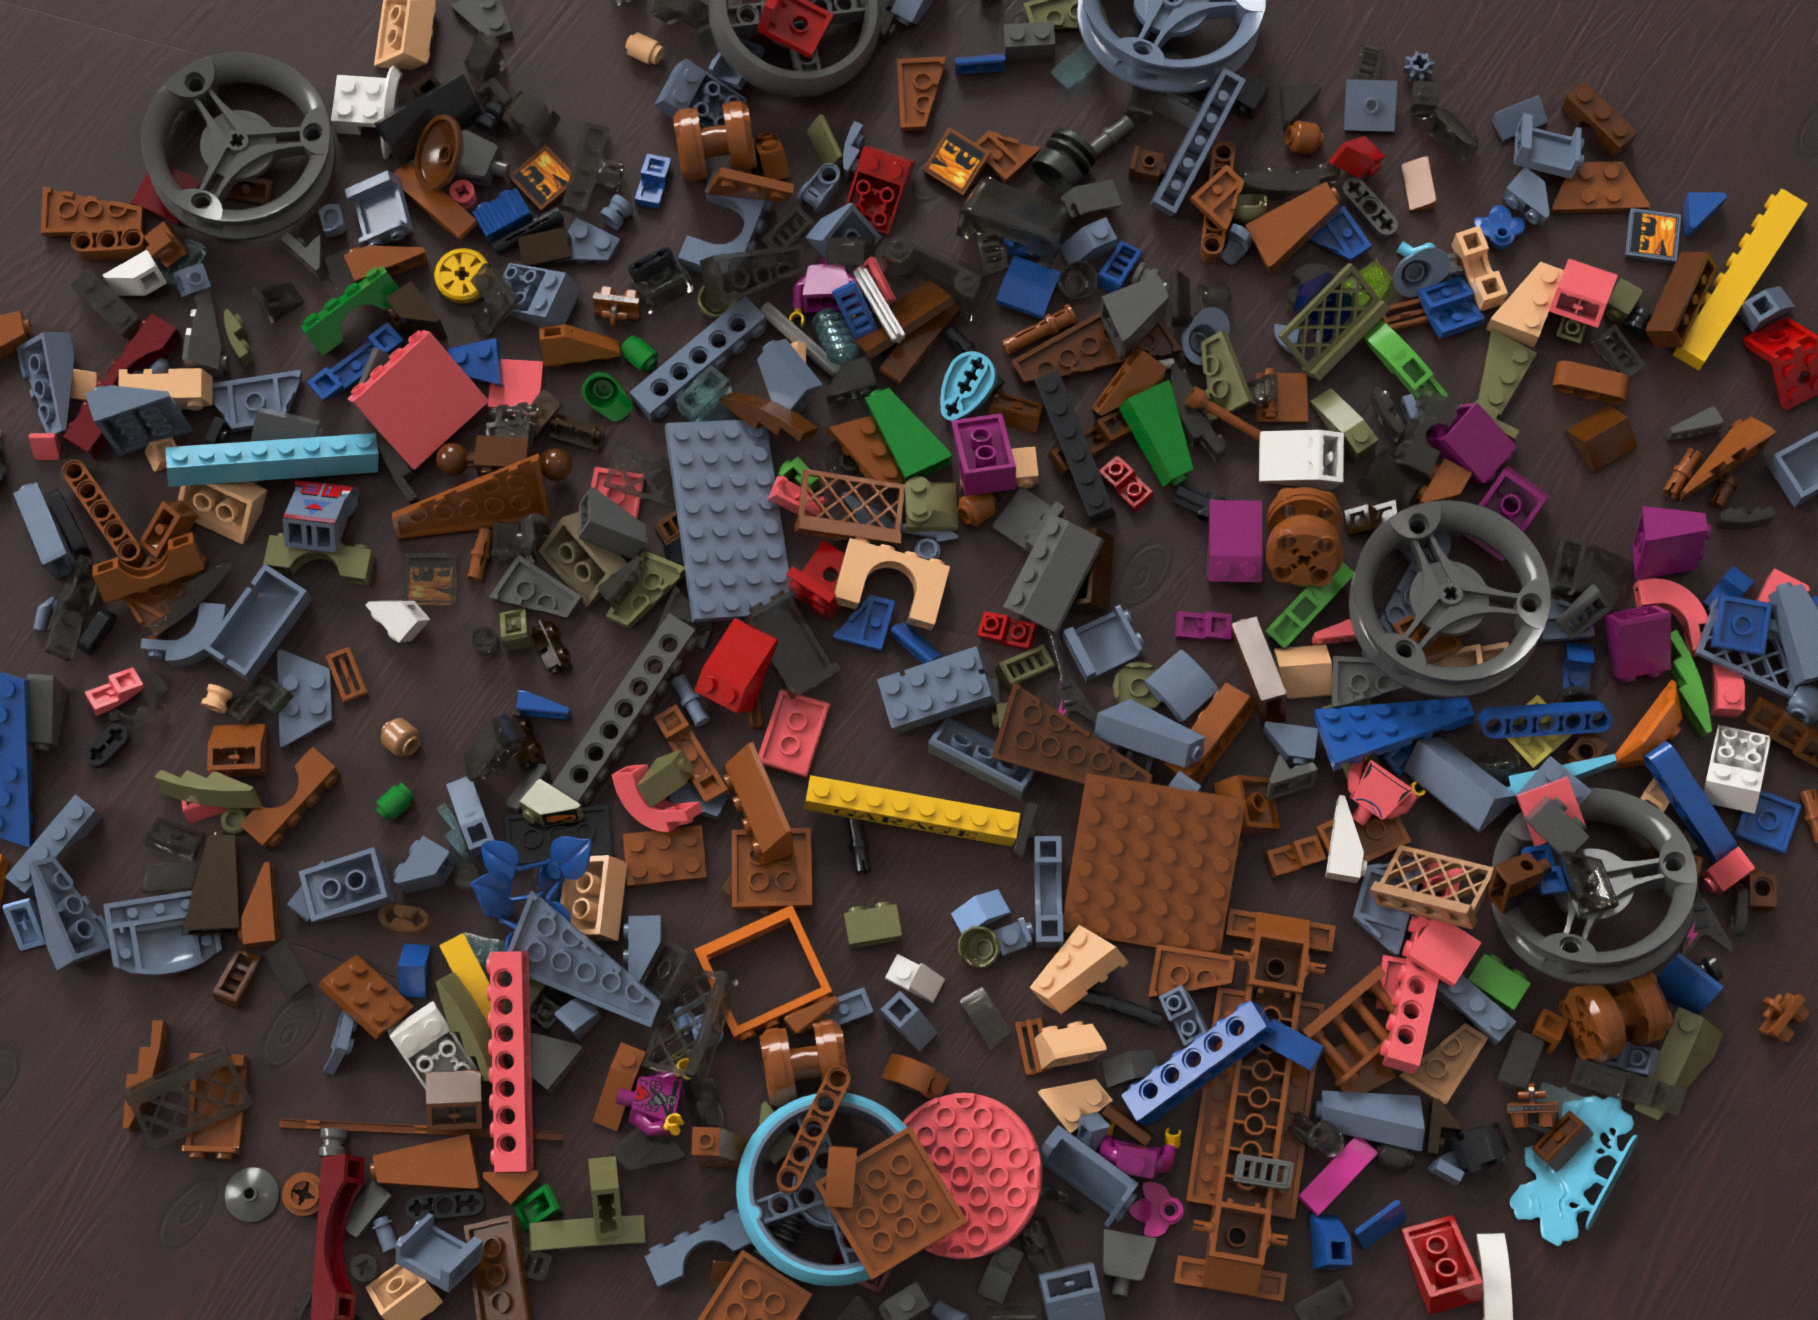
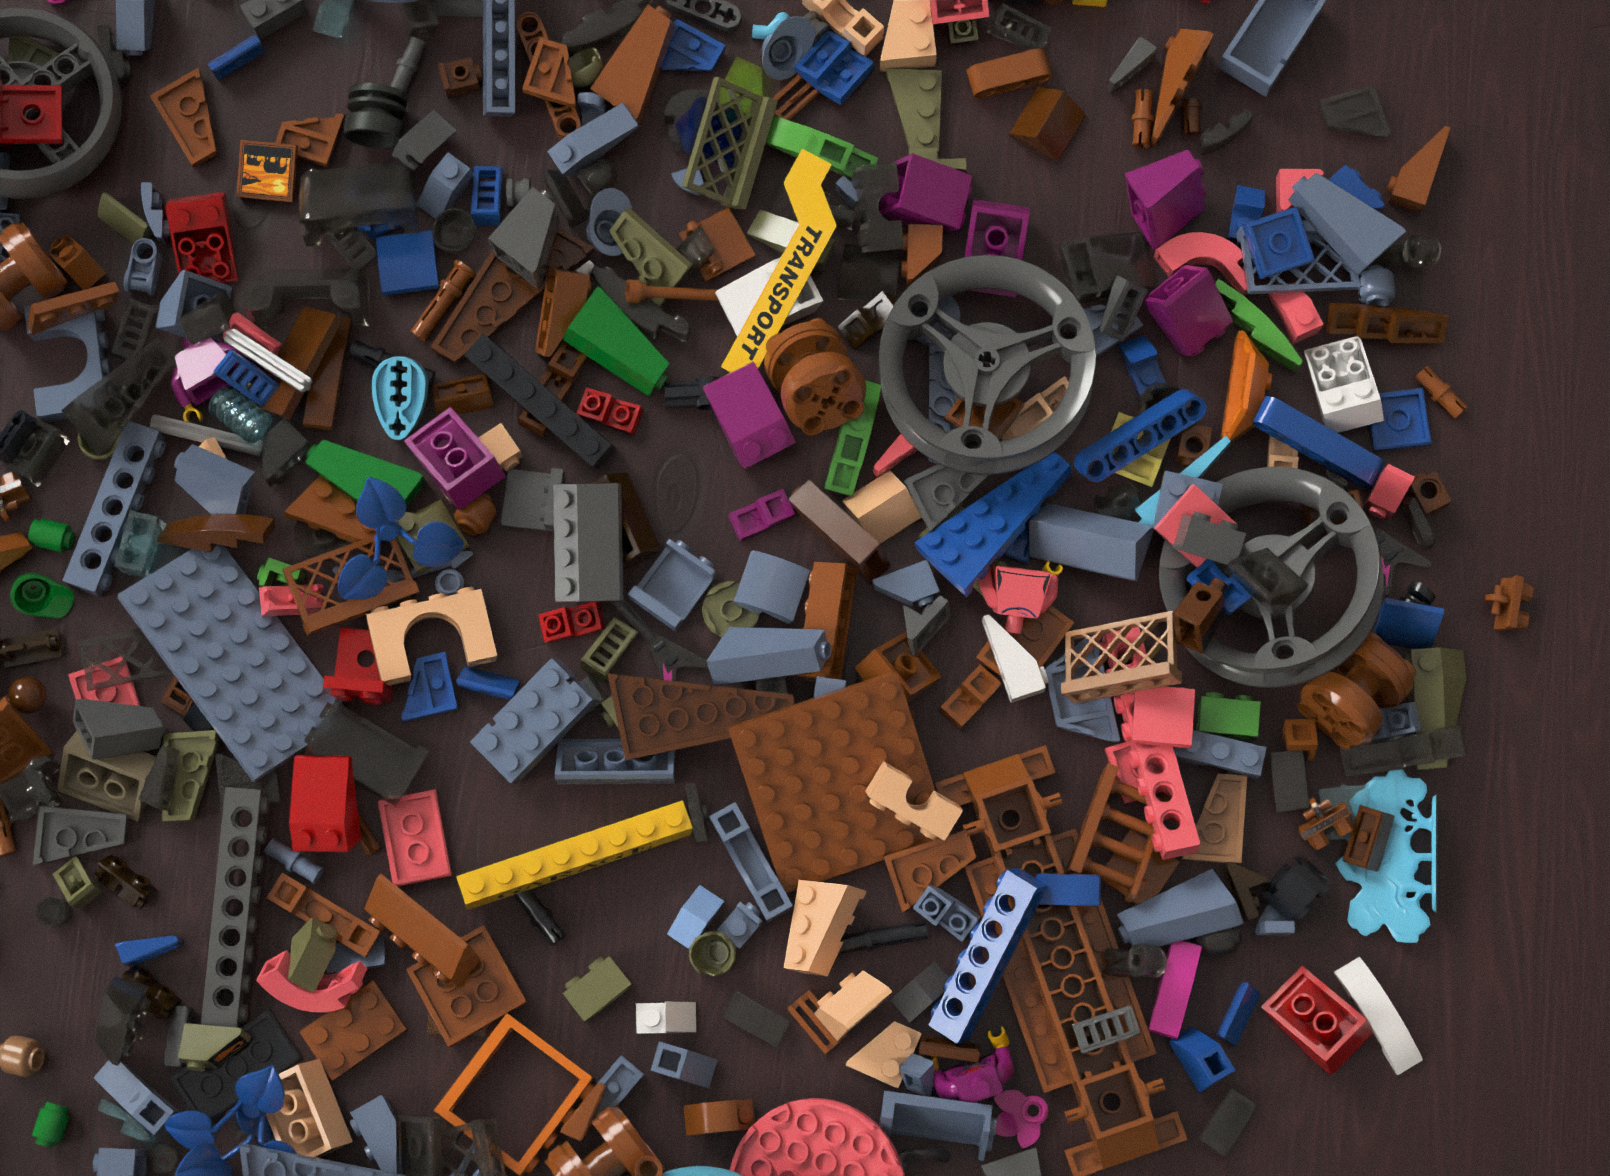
camera: 30 degrees left, 5 degrees up
(905, 458) = (380, 509): none -> blue plant
(1214, 932) = (934, 816): none -> light nougat arch
(1225, 265) = (593, 140): none -> sand blue slope
(1337, 441) = (795, 264): none -> yellow sticker

